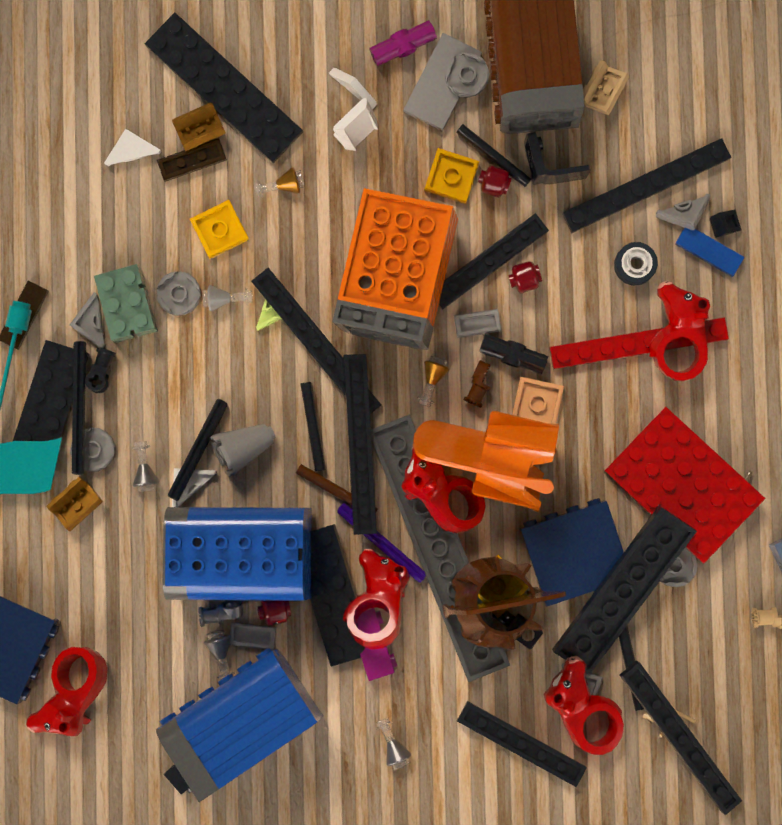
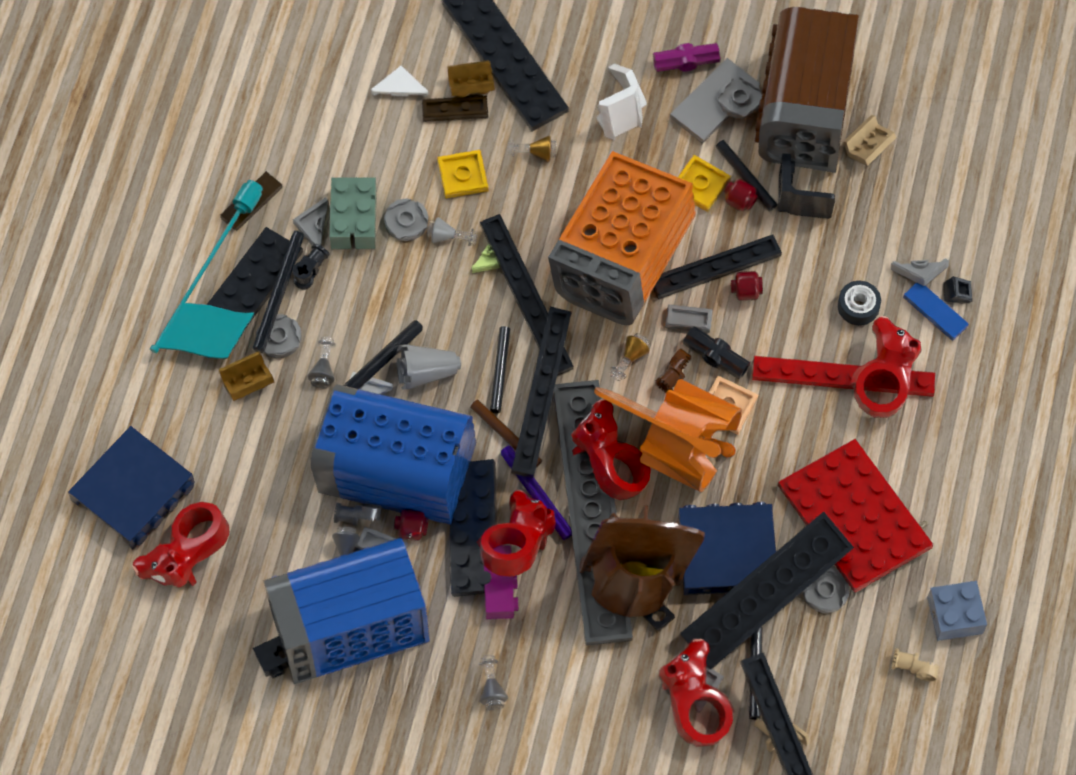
camera: 15 degrees right, 20 degrees down
(521, 743) = (623, 717): black plate -> none
(646, 185) = (888, 238): black plate -> none

